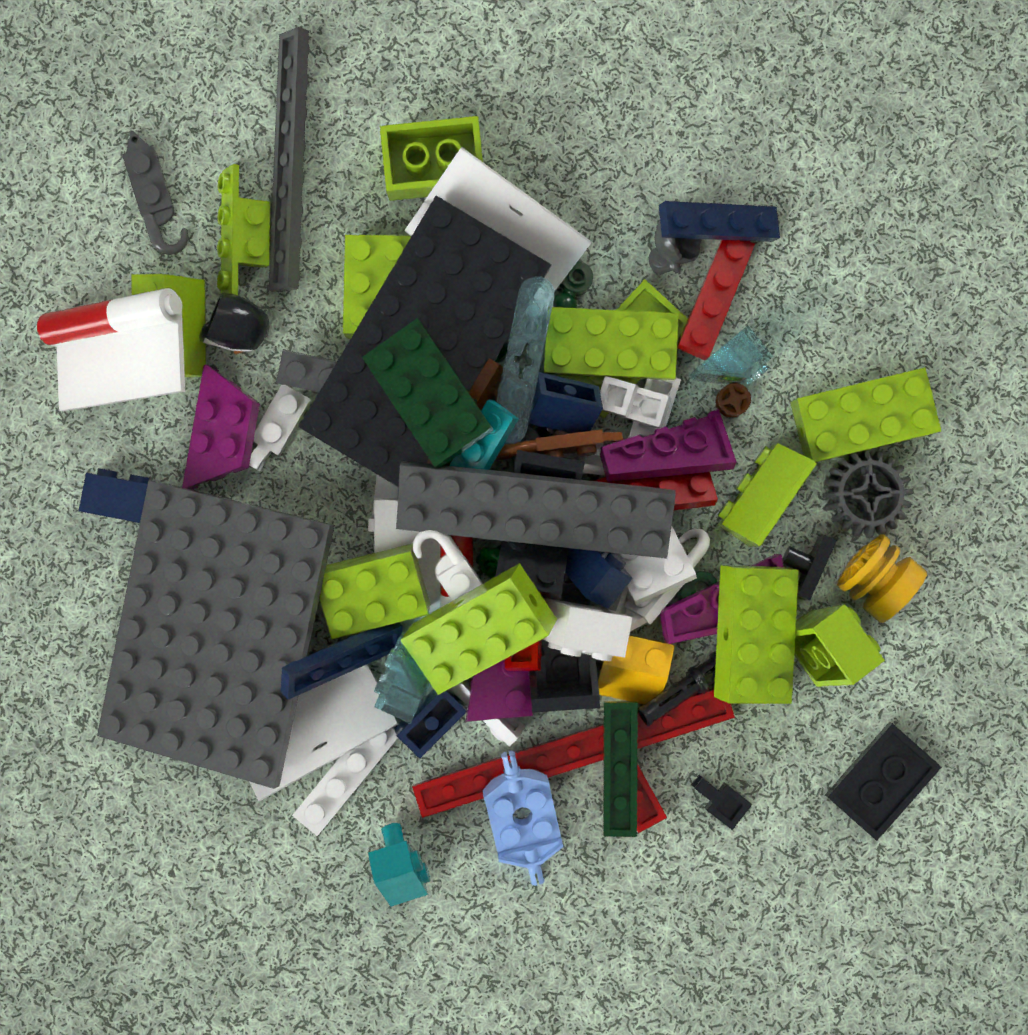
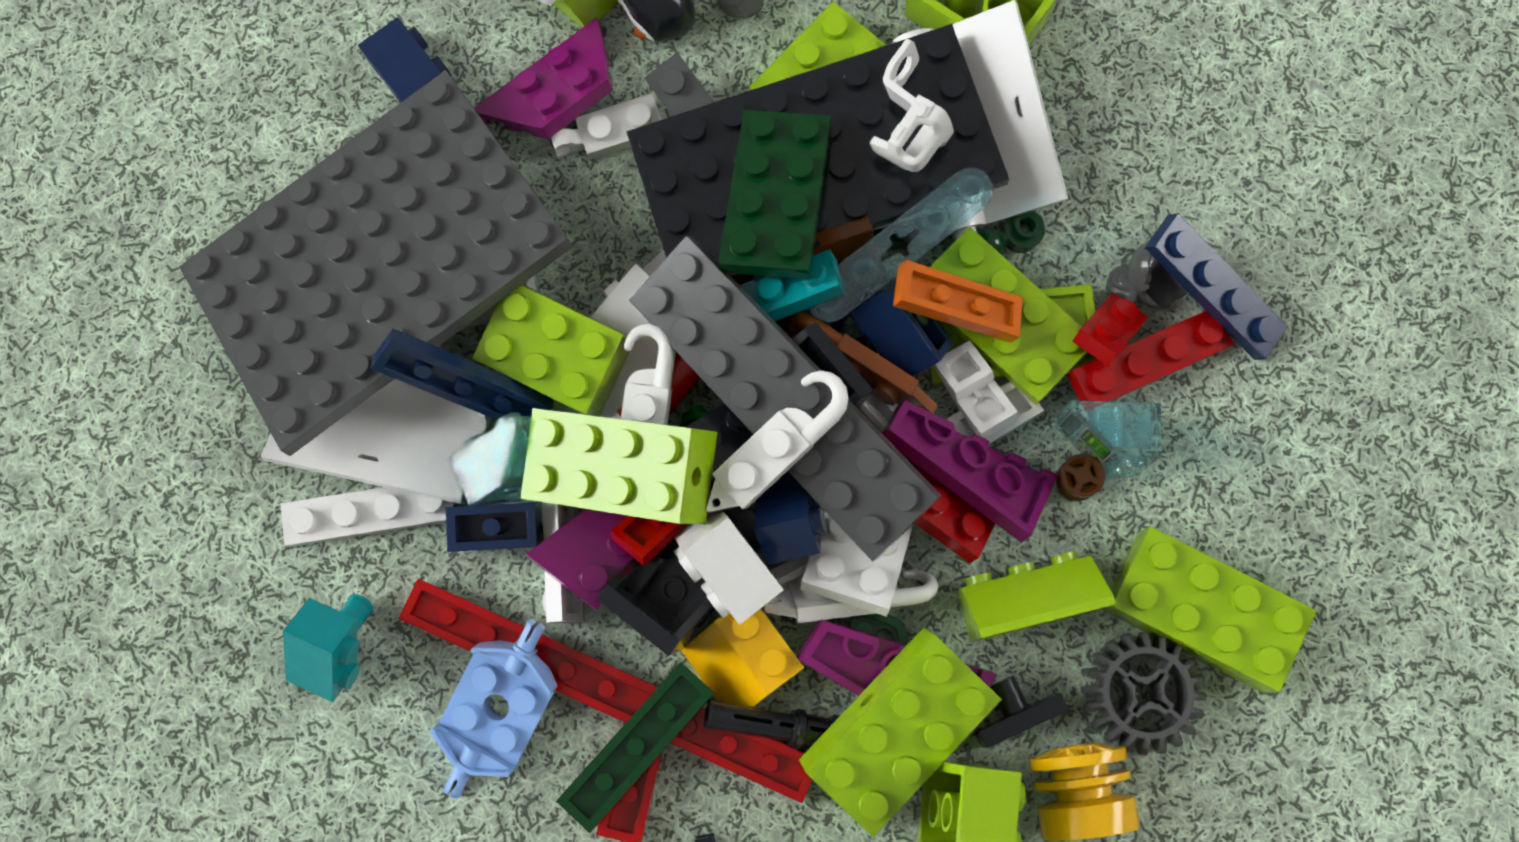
camera: 50 degrees right, 10 degrees down
(477, 278) = (920, 111): none -> white piece
(561, 543) = (775, 448): none -> white plate
(584, 364) = (958, 301): none -> orange plate
(680, 300) = (1110, 329): none -> red plate

